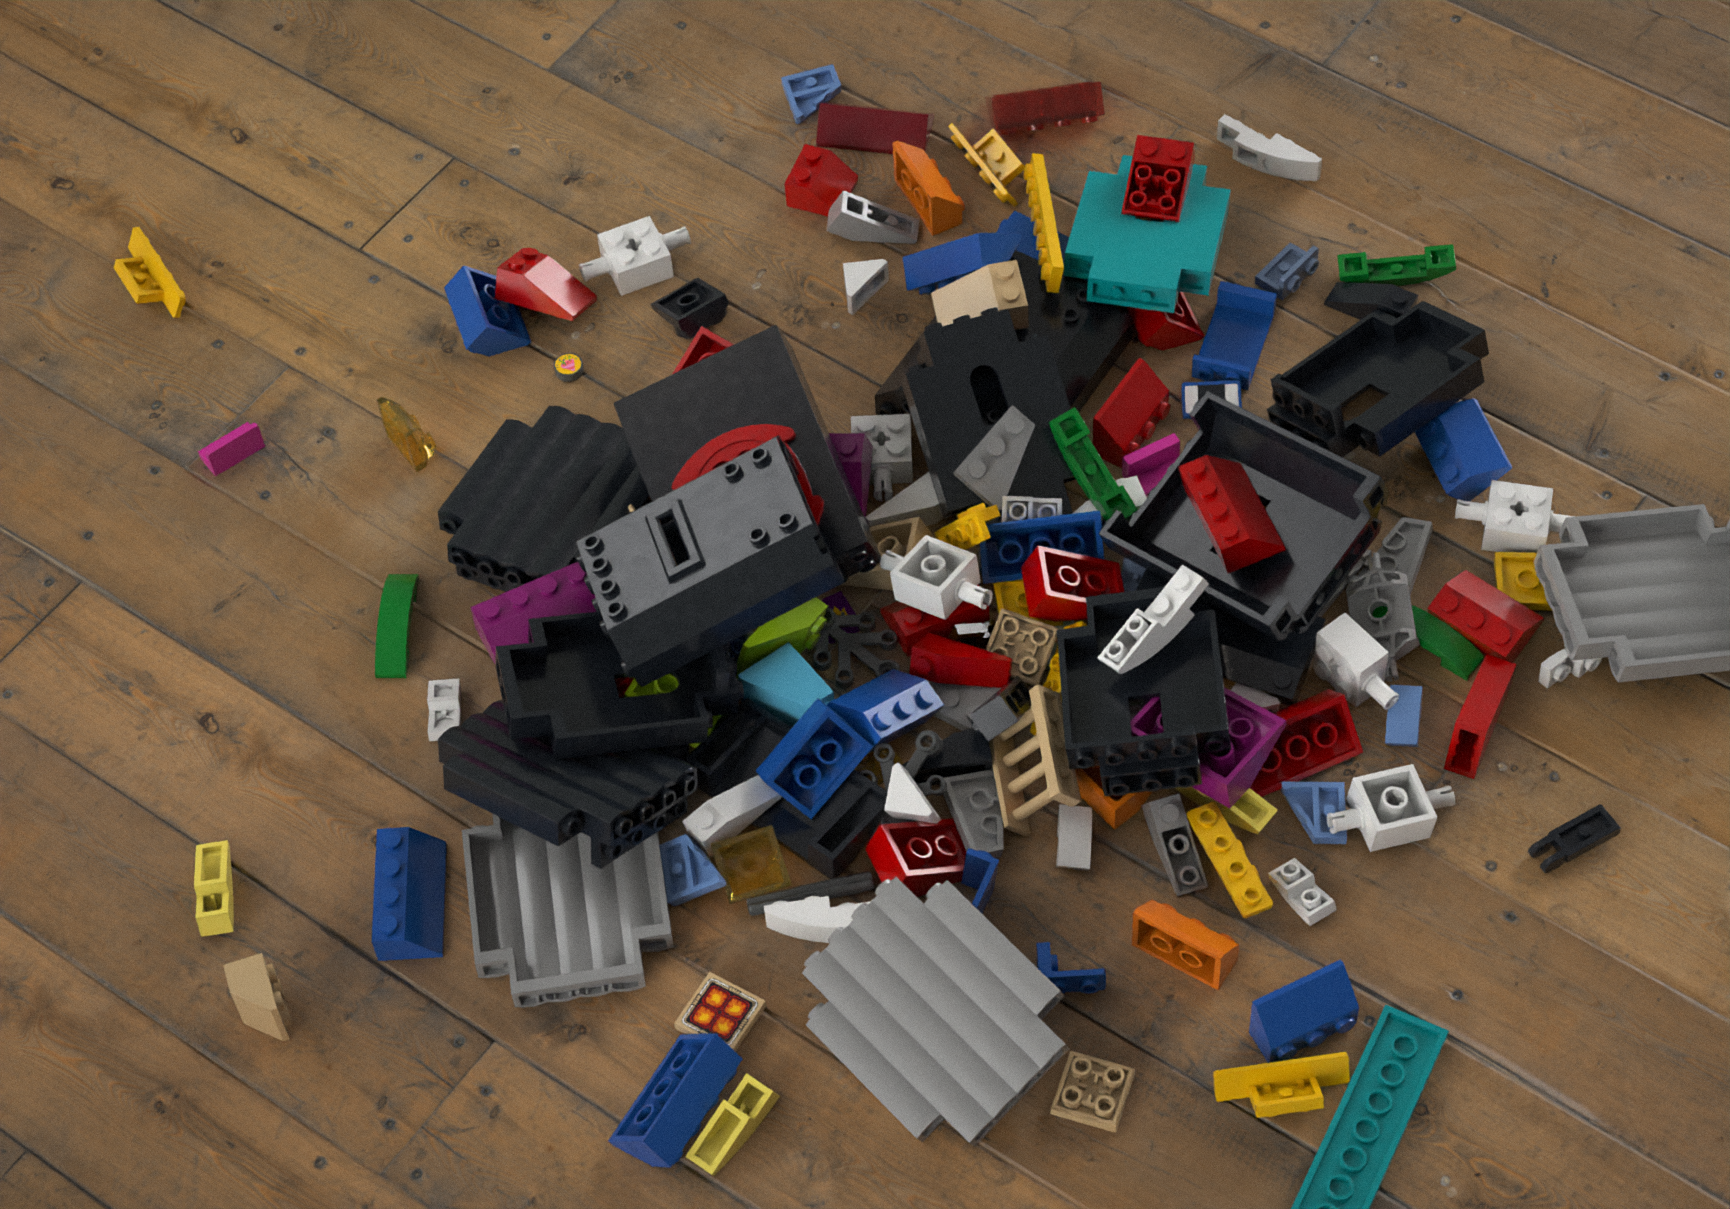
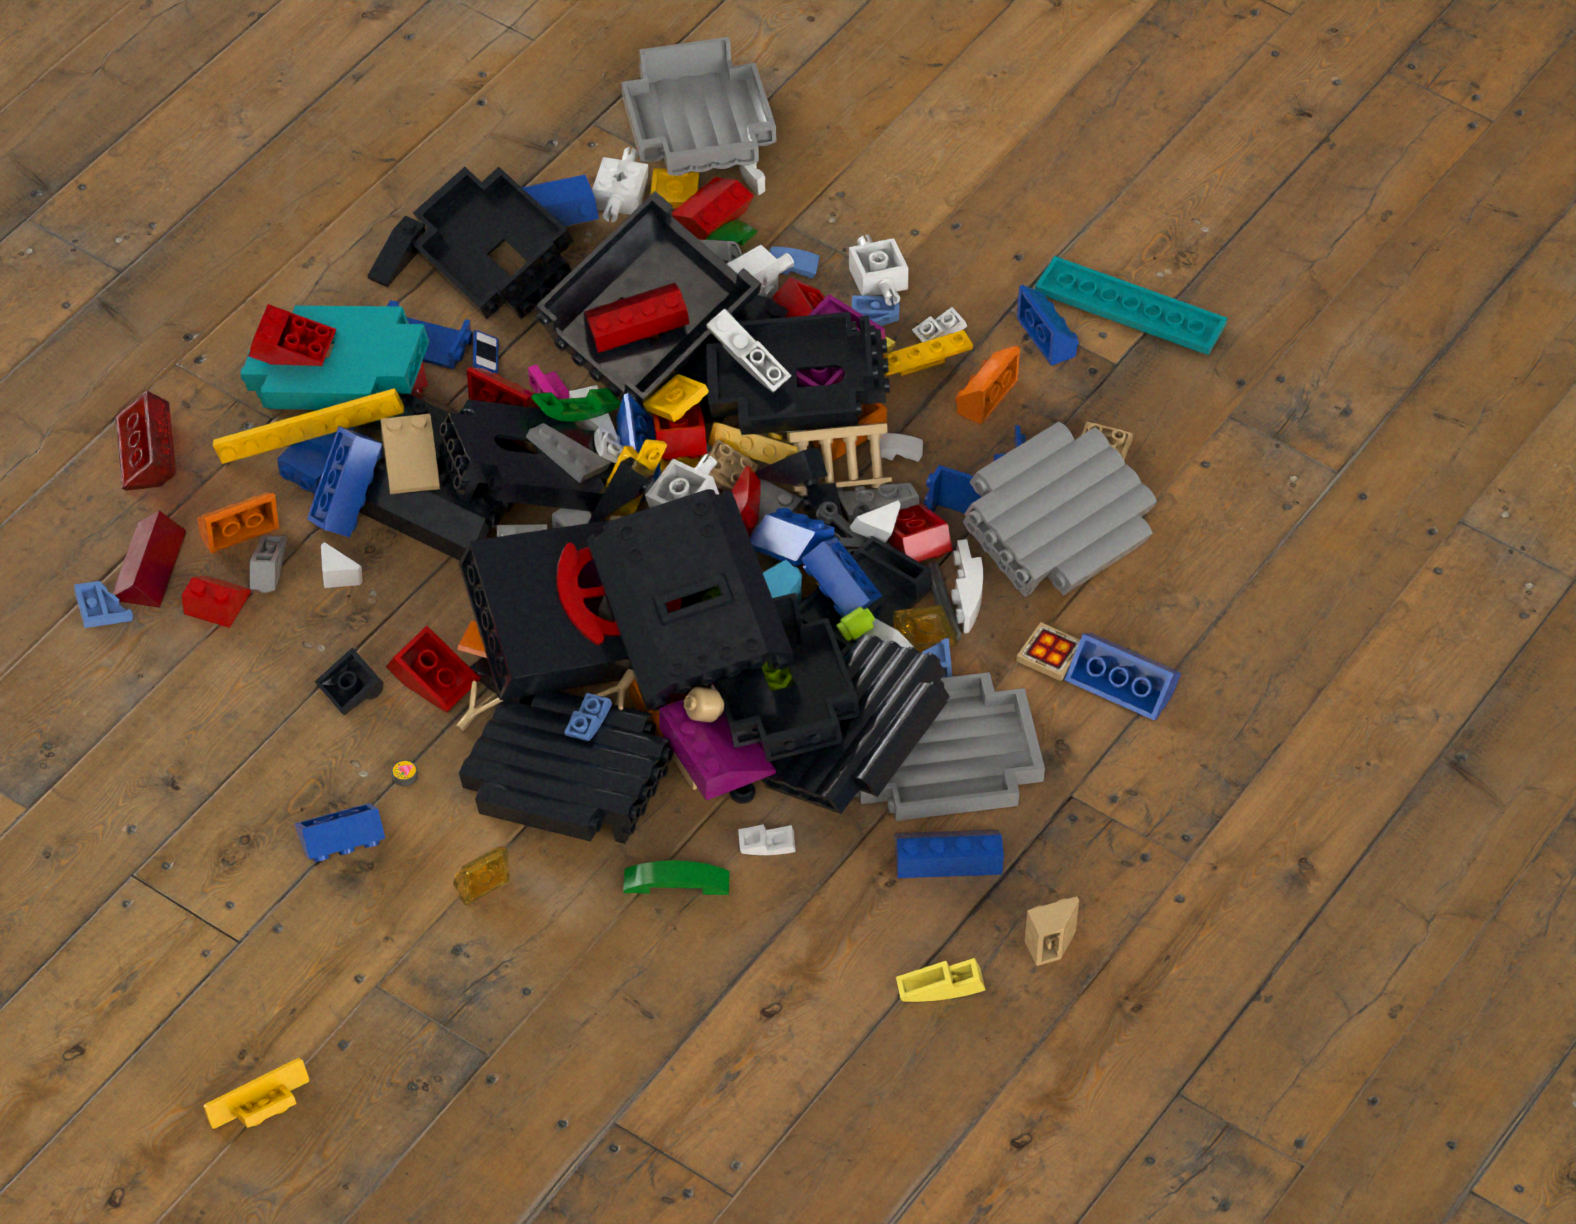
camera: 95 degrees left, 5 degrees down
(232, 448) = (476, 1014): dark pink panel -> none
(542, 285) = (319, 786): red slope -> none
(570, 592) = (703, 704): none -> tan head
(591, 504) = (589, 717): none -> medium blue slope
(635, 255) = (286, 722): white brick -> none
(732, 1124) = (1140, 639): light yellow slope -> none
(737, 774) = (856, 623): none -> lime brick
(939, 513) = (626, 484): none -> black slope
(995, 158) = (207, 477): yellow bracket -> none
(1104, 568) = (676, 397): none -> yellow plate
(1175, 843) = (909, 391): light grey slope -> none
(1272, 156) = (228, 303): white slope -> none
(1283, 1085) = (1101, 341): yellow bracket -> none
(1288, 270) = (356, 293): sand blue bracket -> none
(1398, 270) = (360, 233): green slope -> none
(1479, 716) = (798, 217): red slope -> none
(1576, 837) = (897, 183): black hinge -> none

